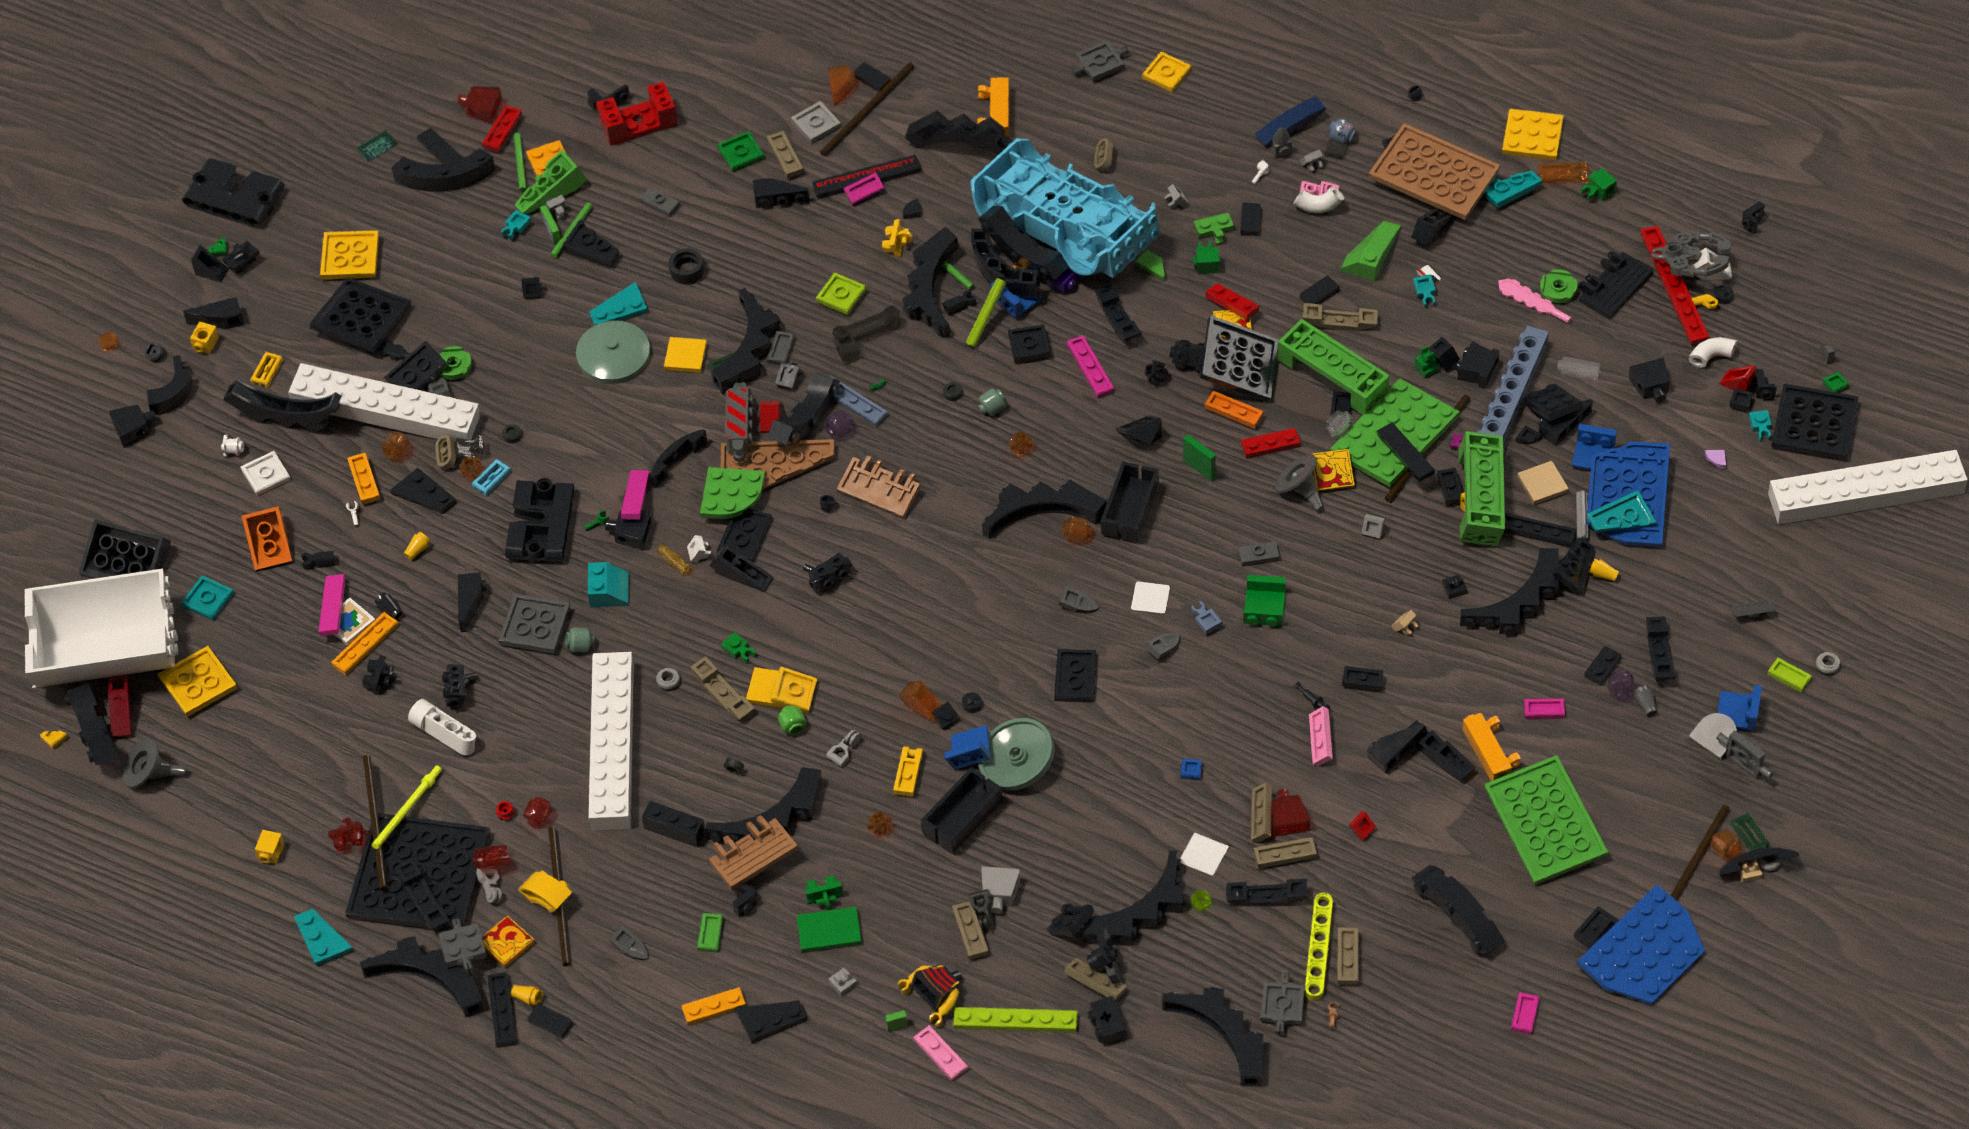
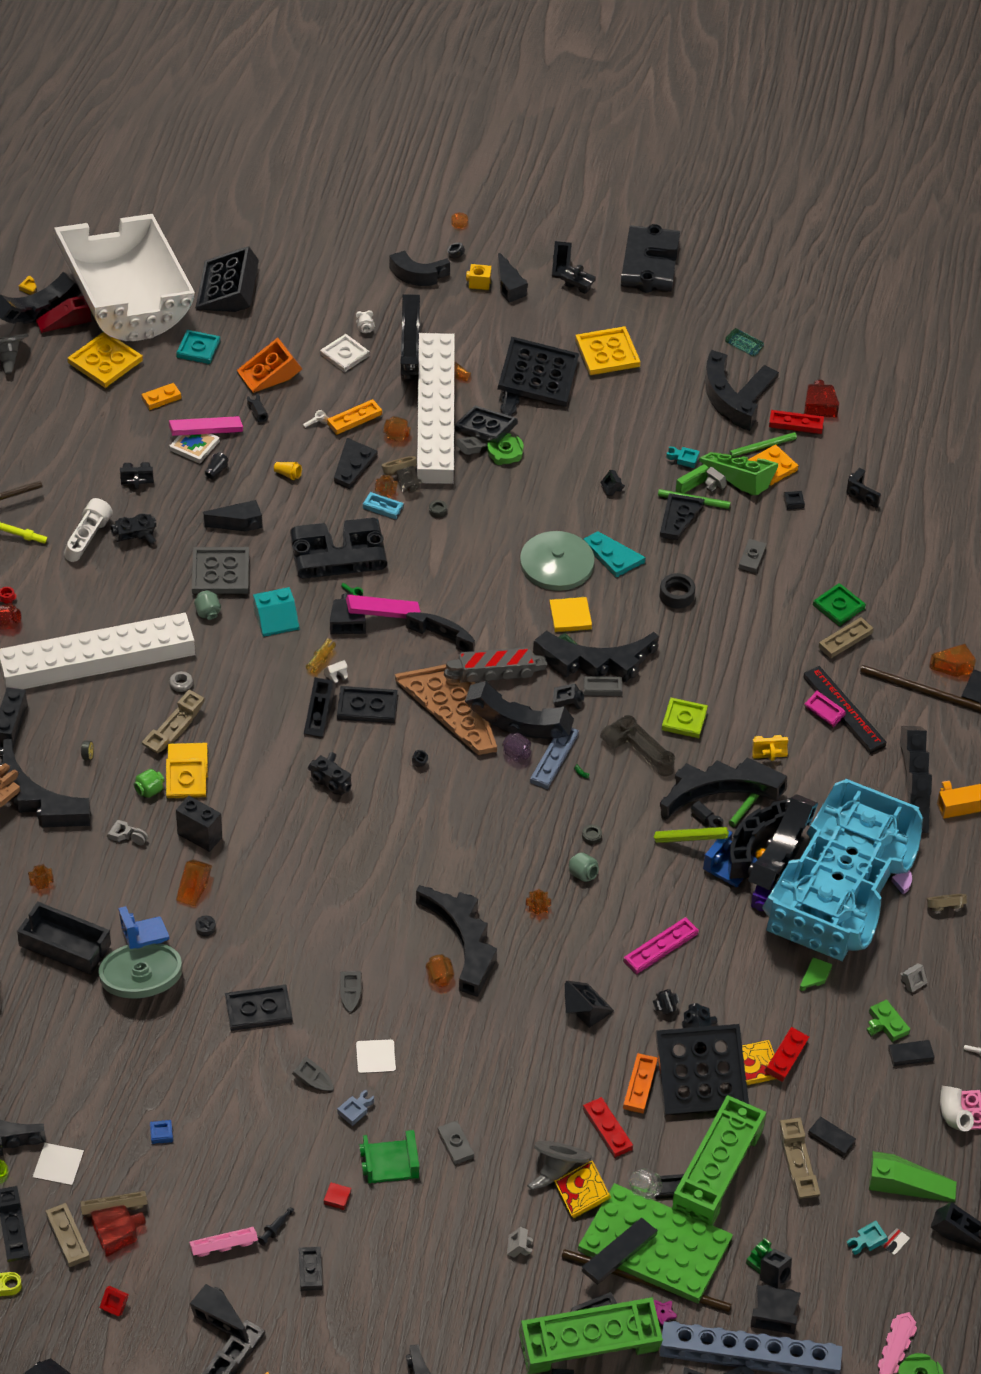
camera: 70 degrees right, 5 degrees down
(131, 423) = (369, 253): black torso -> none
(219, 248) = (588, 265): green tile -> none
(266, 378) = (461, 327): yellow tile -> none
(268, 640) = (161, 396): none -> light orange plate
(364, 643) = (172, 460): light orange tile -> none
(599, 155) = (794, 500): none -> black tile
(656, 115) = (834, 503): red plate -> none
(730, 492) = (406, 678): bright green plate -> none
(737, 646) = (230, 725): green plate -> none
(768, 412) = (518, 691): red slope -> none
(775, 192) = (791, 636): black slope -> none
(815, 122) = (899, 655): light grey tile -> none
(860, 682) = (199, 823): none -> black piece
(878, 488) = (449, 796): medium nougat hinge -> none
(908, 771) = (109, 888): yellow plate -> none
(912, 209) = (815, 754): black tile -> none
(944, 714) = (182, 904): black plate -> none
(1029, 343) = (672, 885): black plate -> none
(1116, 313) = (736, 955): black slope -> none
(1129, 502) = (484, 1007): black piece -> none
(1199, 457) = (558, 1058): green tile -> none
(1206, 259) = (837, 1021): green brick -> none
(1292, 648) = (337, 1196): none -> red tile
(1403, 622) = (395, 1295): tan tile -> none
(1454, 586) = (459, 1339): black tile -> none

